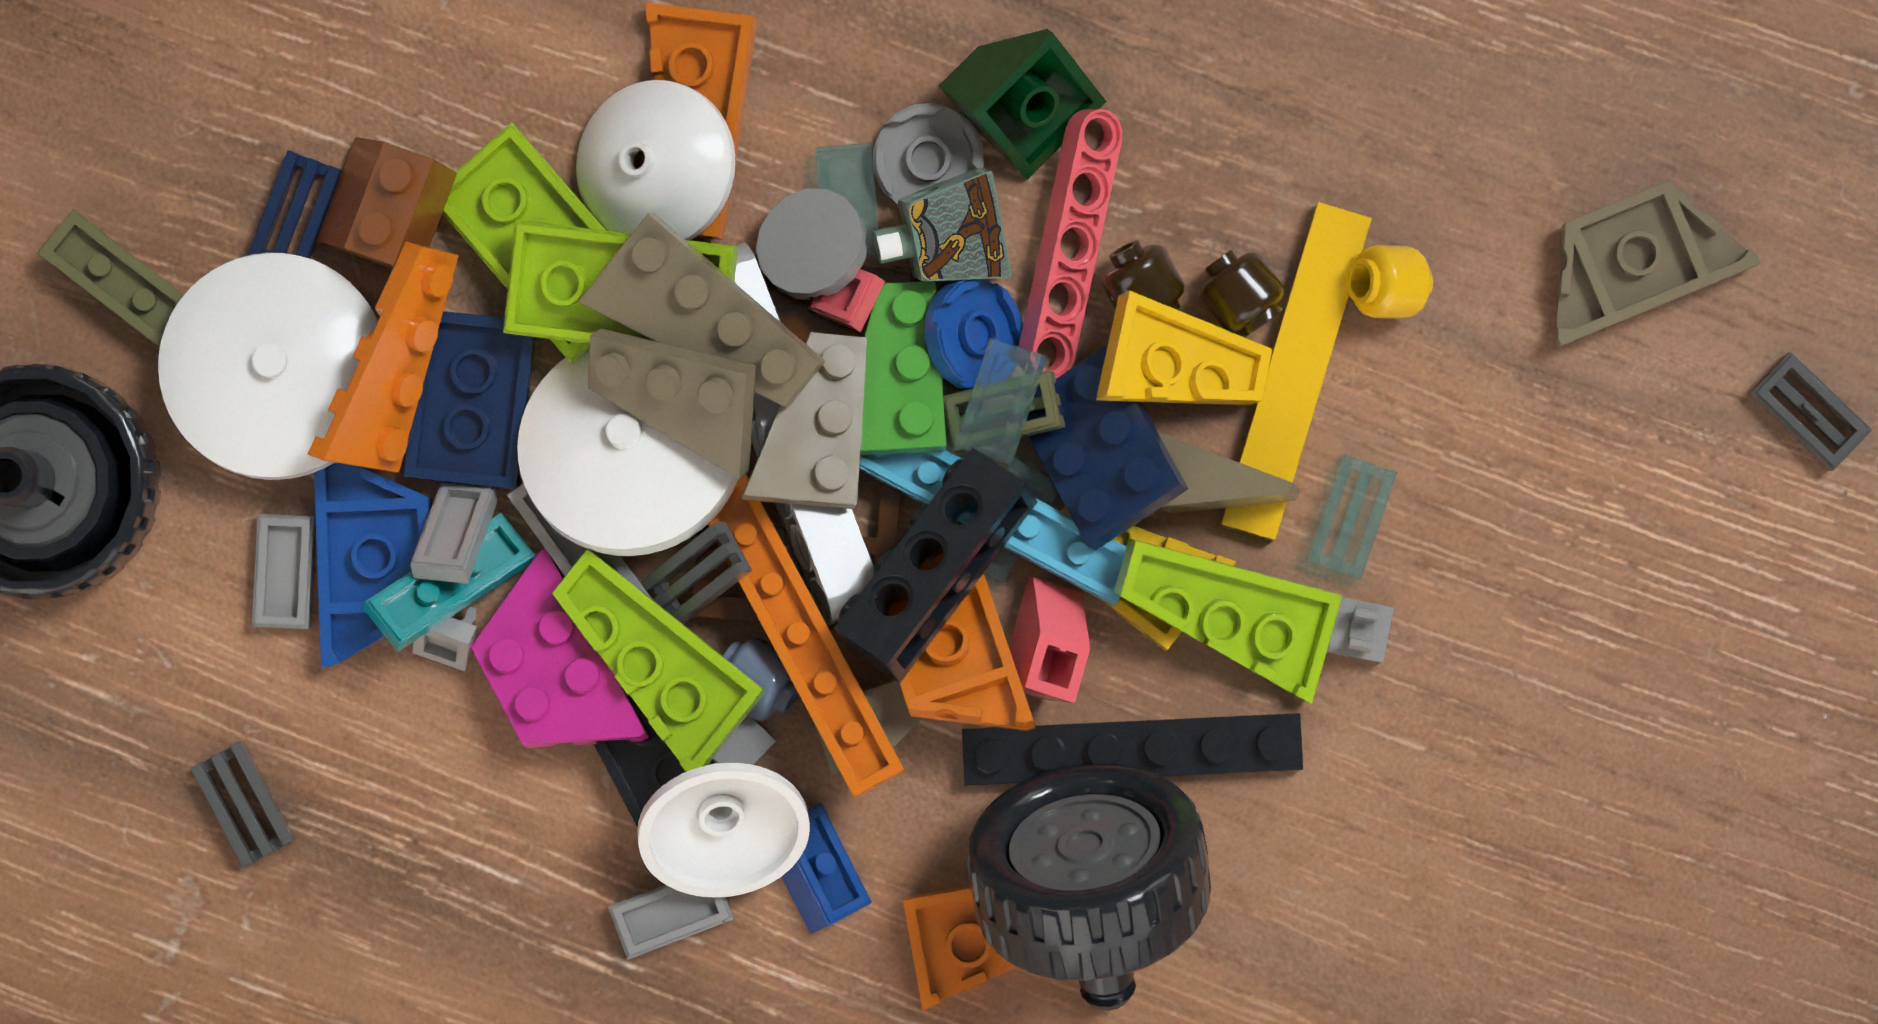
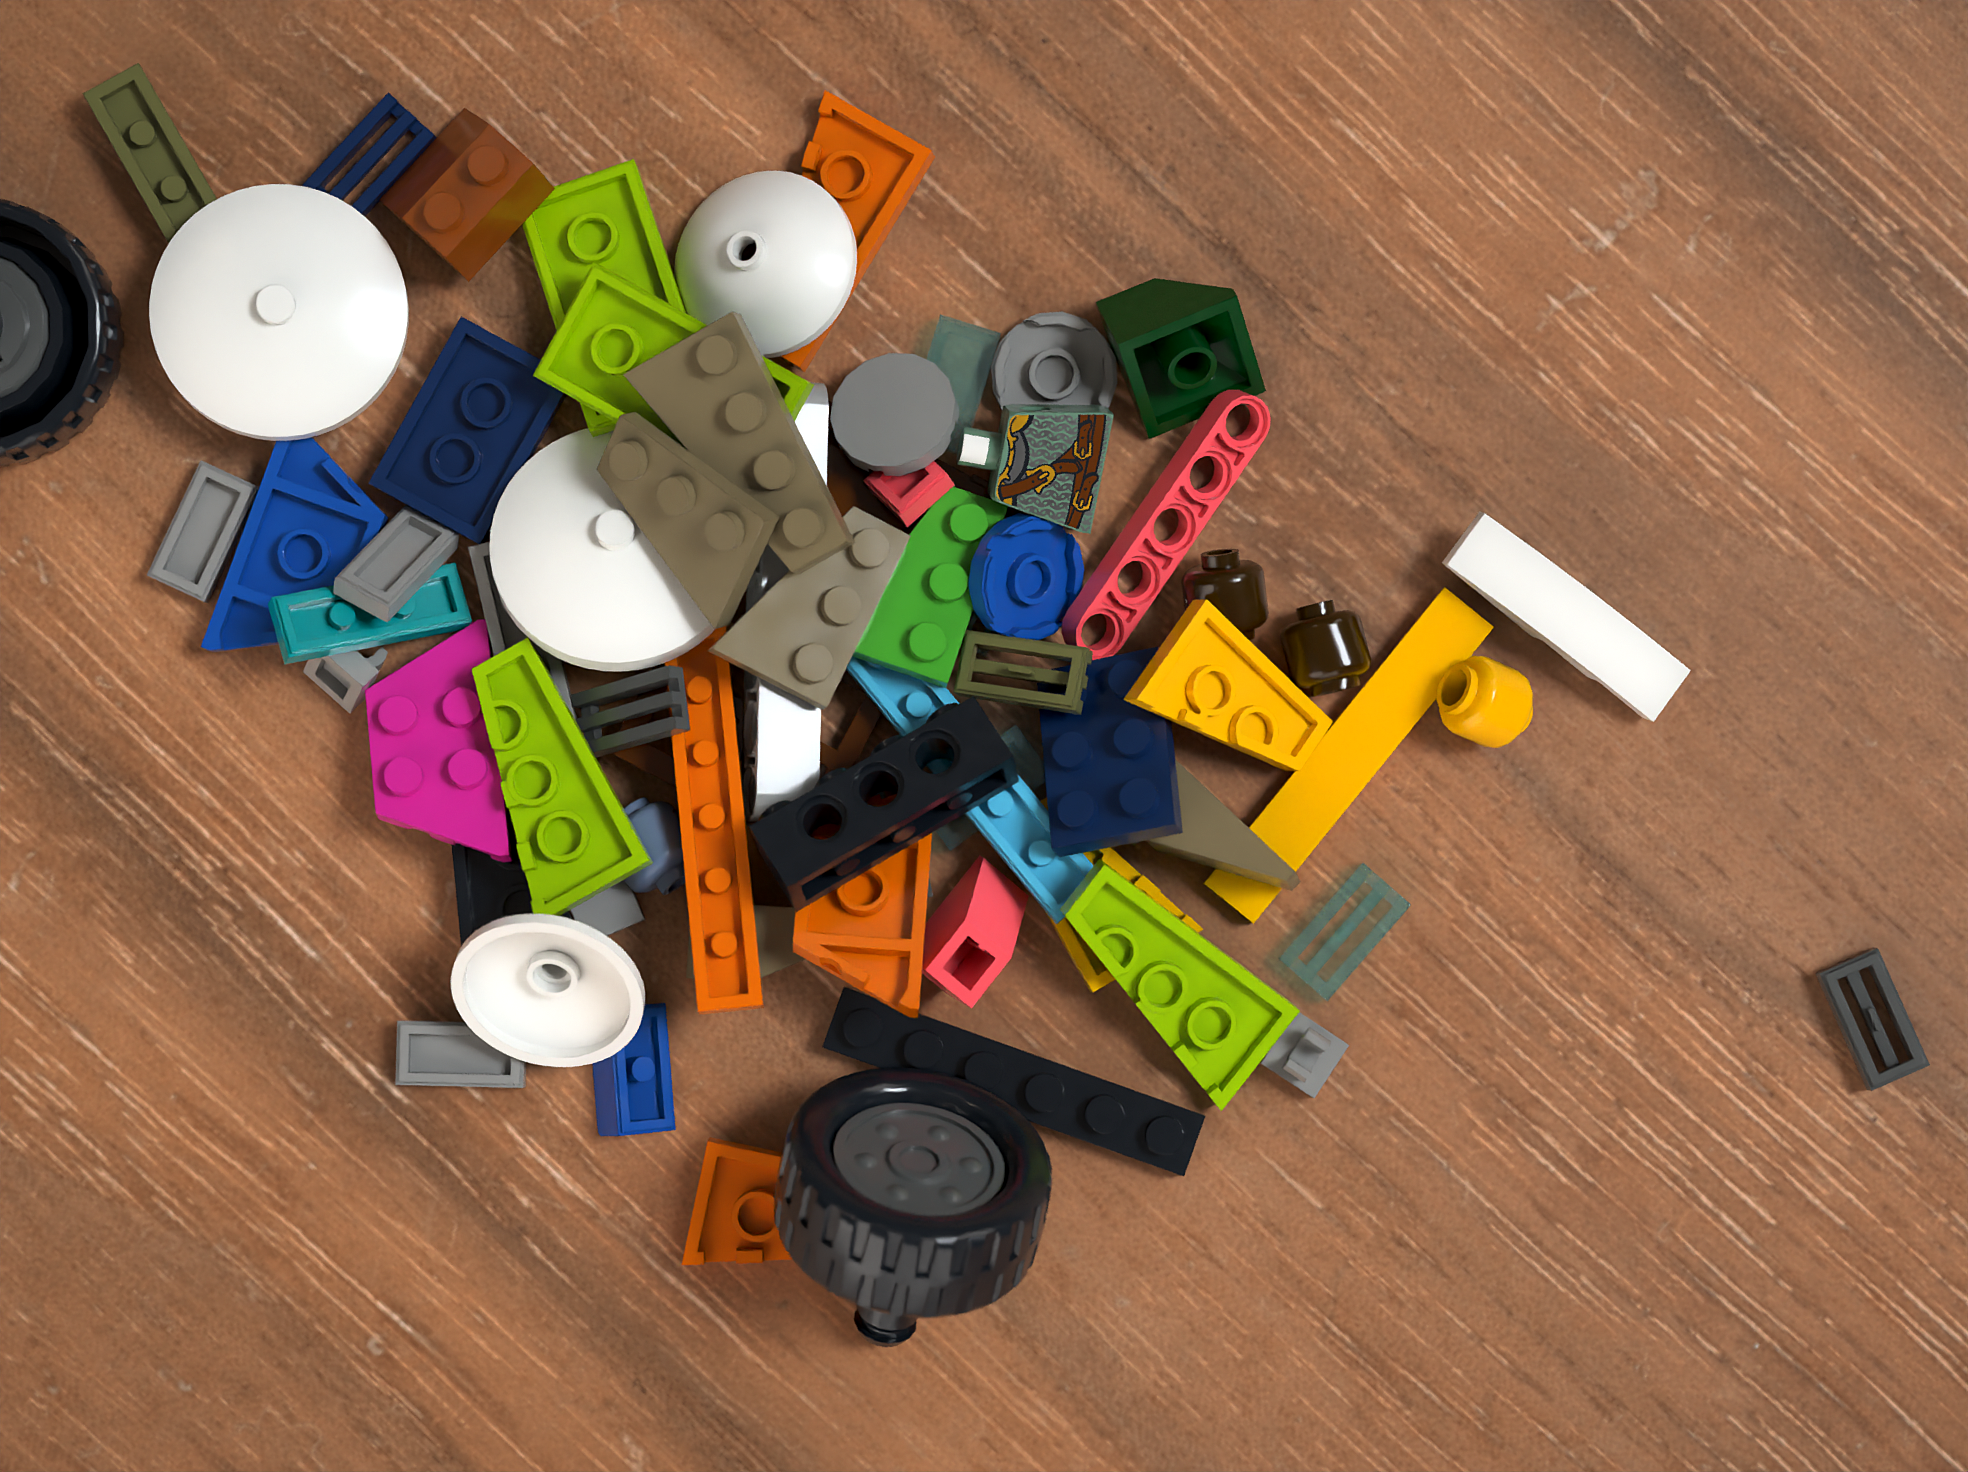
camera: 20 degrees right, 0 degrees up
(219, 807) = (37, 762): dark grey tile -> none
(393, 359) = (405, 357): orange wing -> none
(1000, 401) = (1023, 660): clear light blue tile -> none
(1427, 185) = (1566, 616): none -> white slope
(1639, 259) = (1757, 785): dark tan wing -> none

